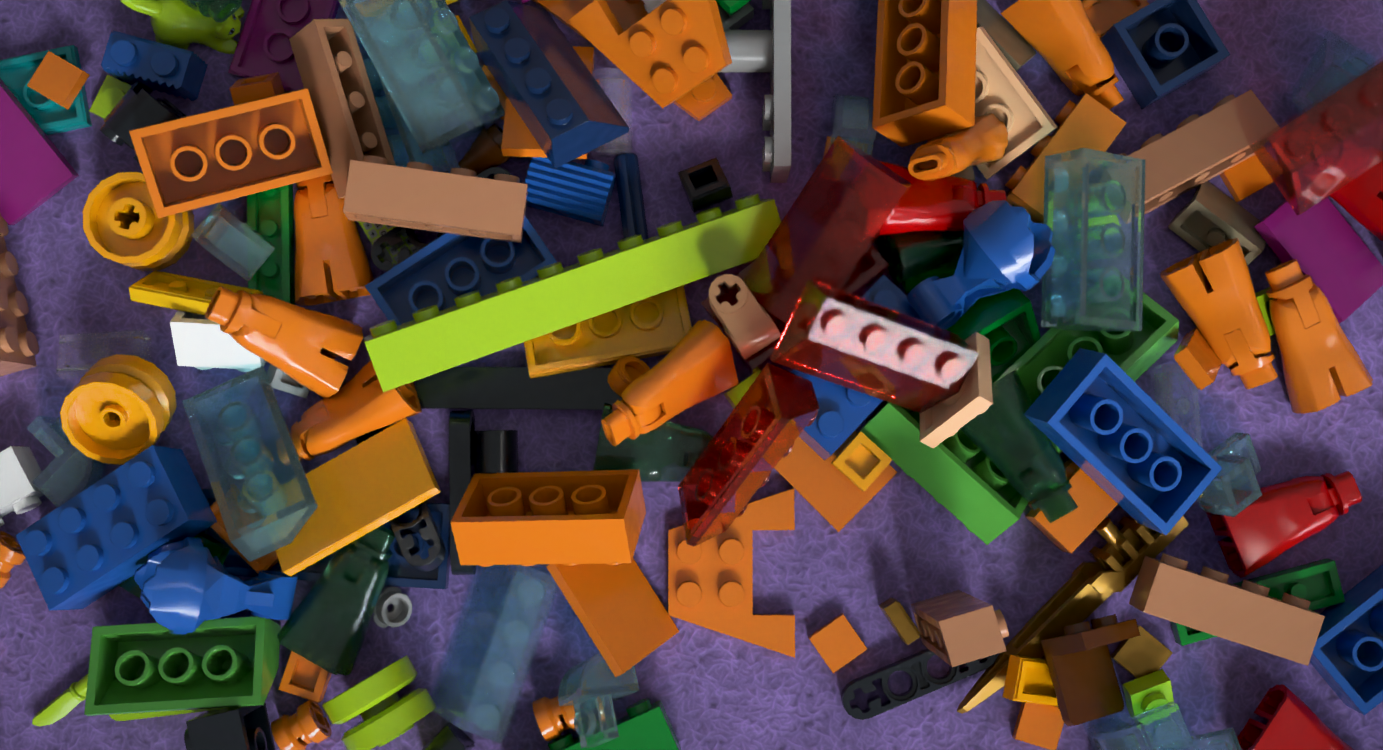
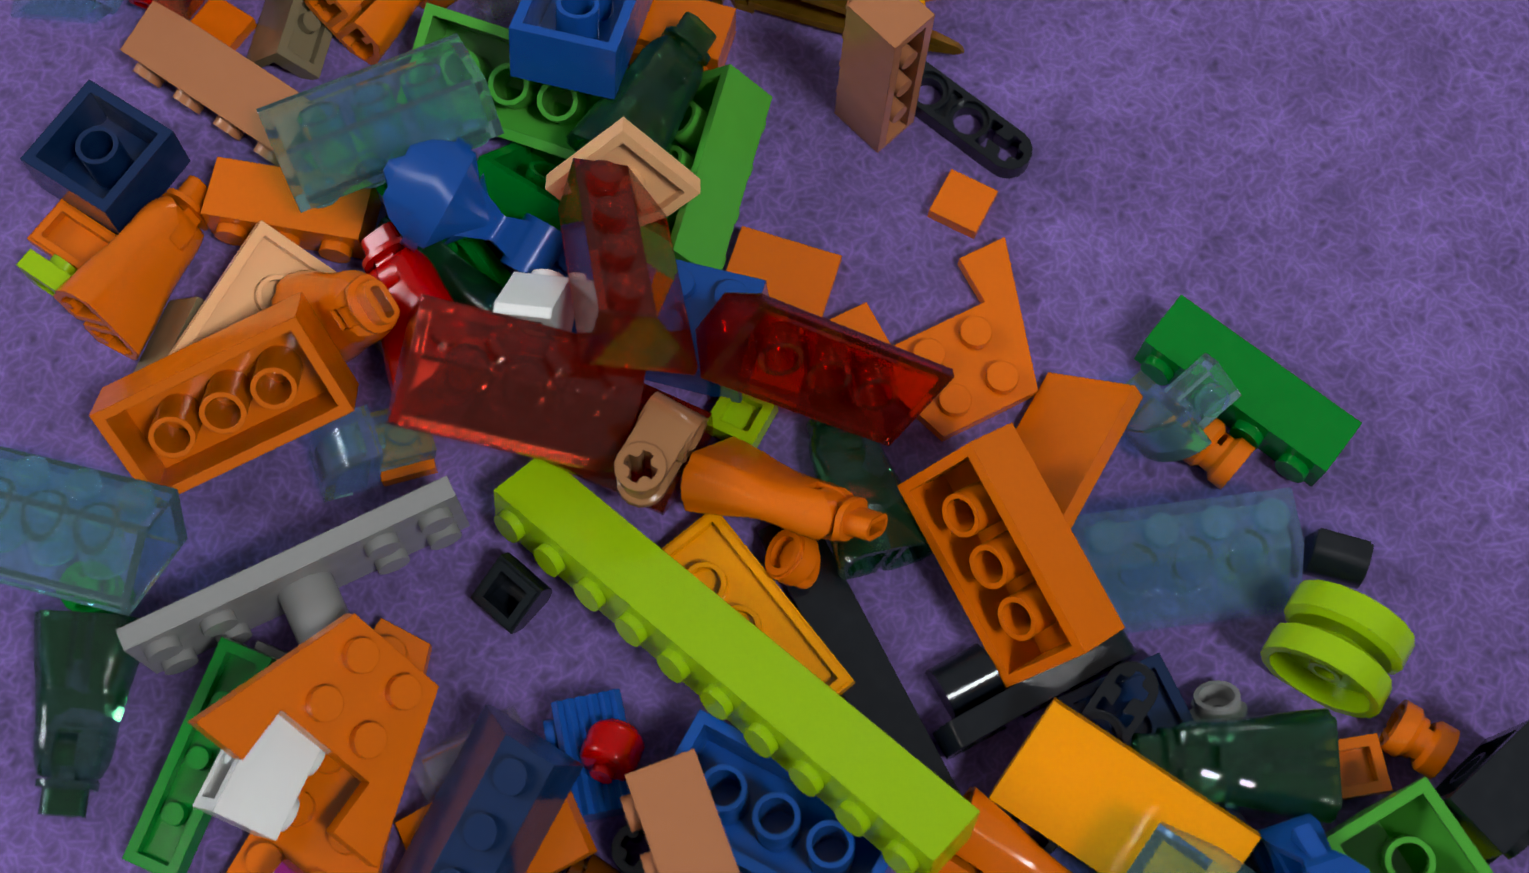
camera: 125 degrees left, 15 degrees down
(561, 195) = (611, 750): none -> red piece
(630, 195) = (573, 676): dark blue axle -> none
(861, 461) = (753, 255): light orange plate -> none
(881, 277) = (538, 298): none -> white slope
(900, 620) = (902, 148): pearl gold tile -> none

